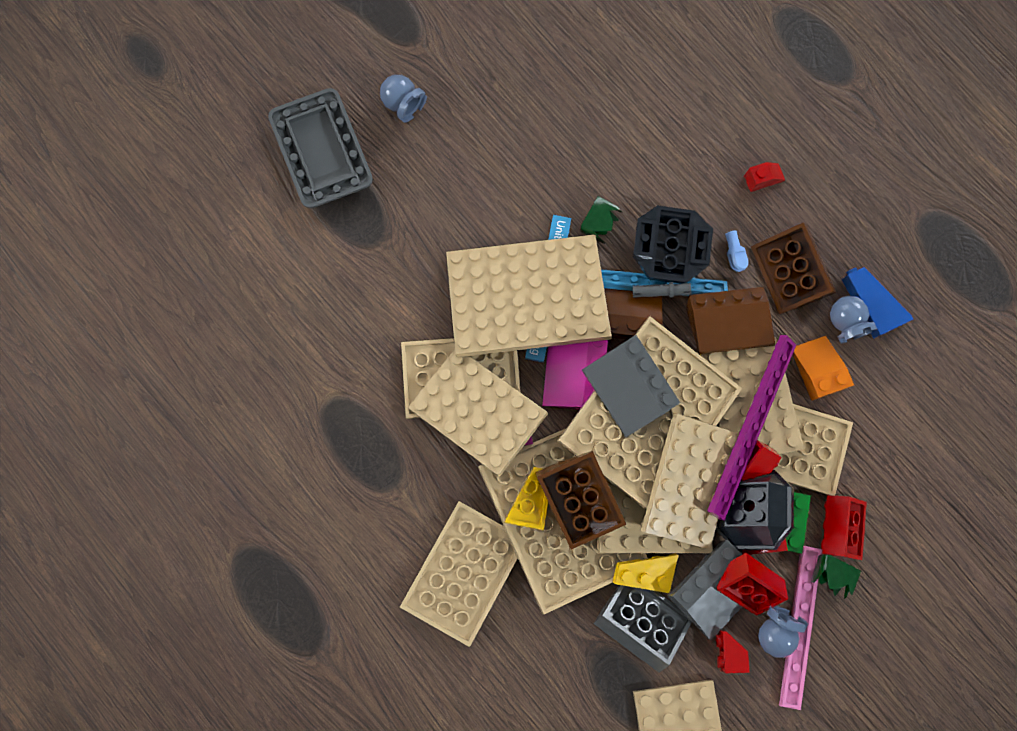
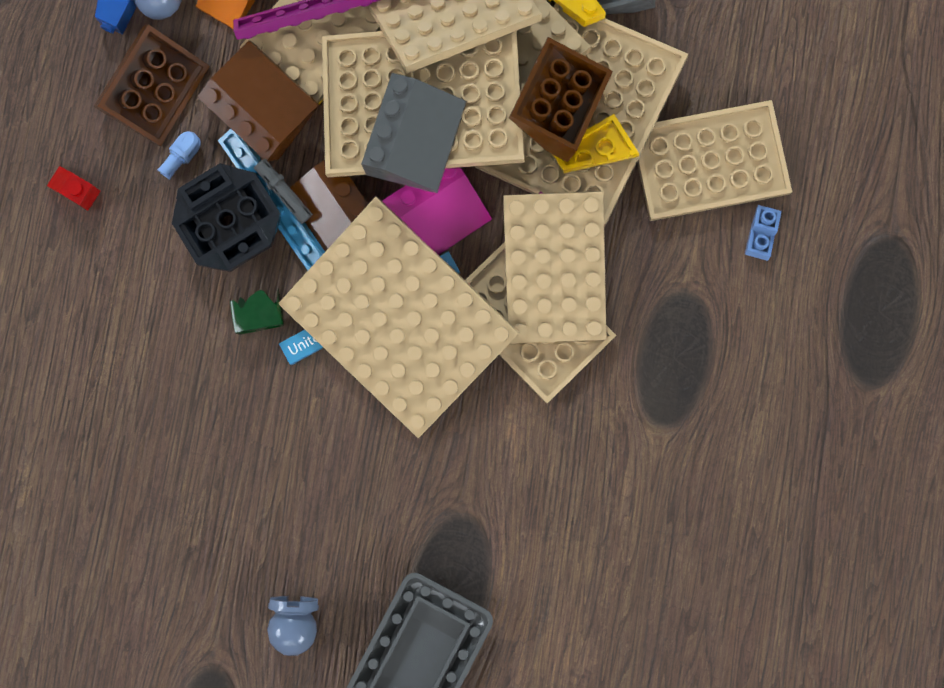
camera: 120 degrees left, 5 degrees up
(390, 567) = (762, 232): none -> medium blue slope

